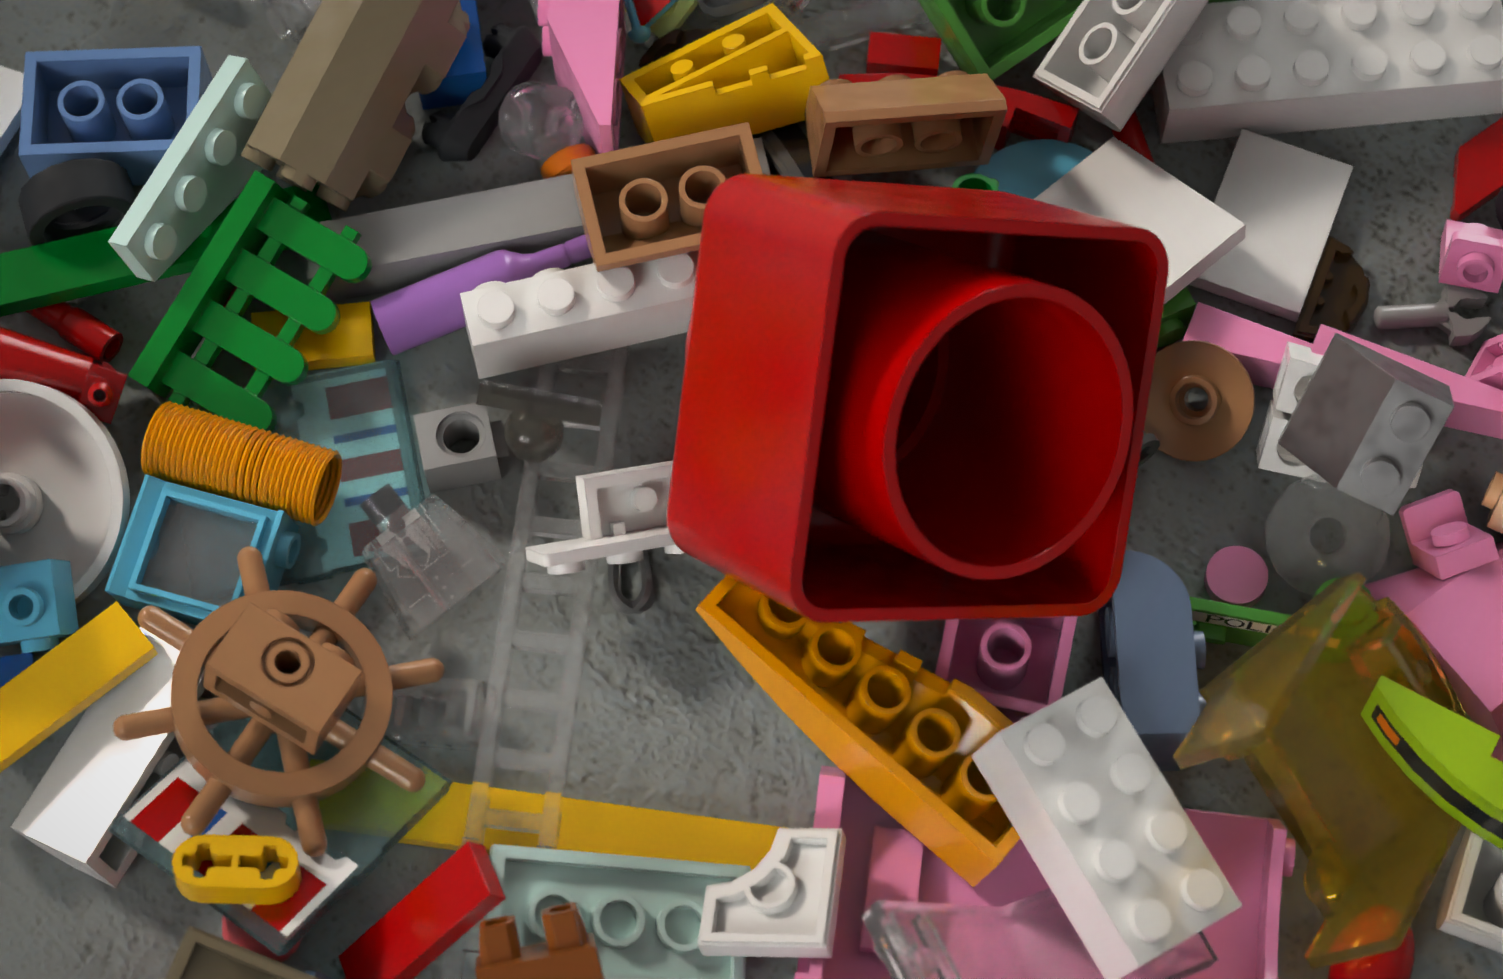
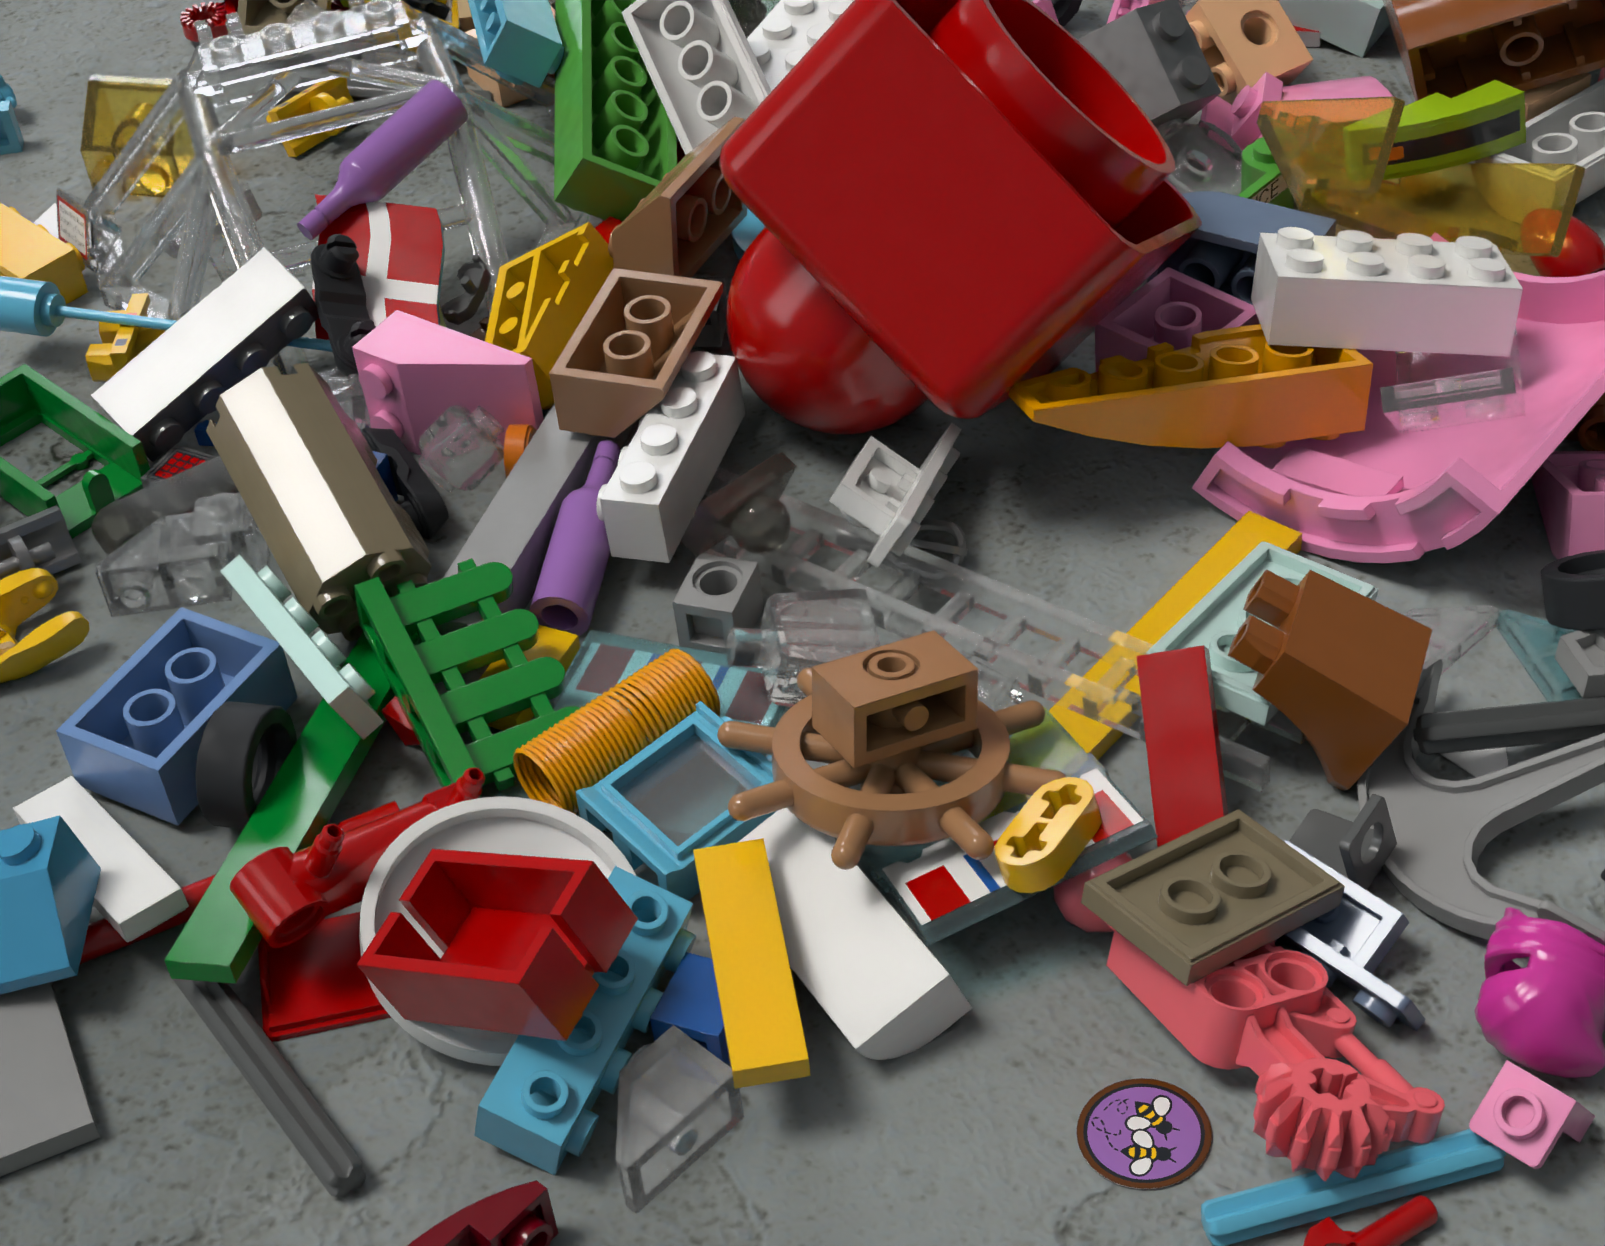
camera: 55 degrees left, 25 degrees down
(783, 903) = (1318, 507): white tile -> none

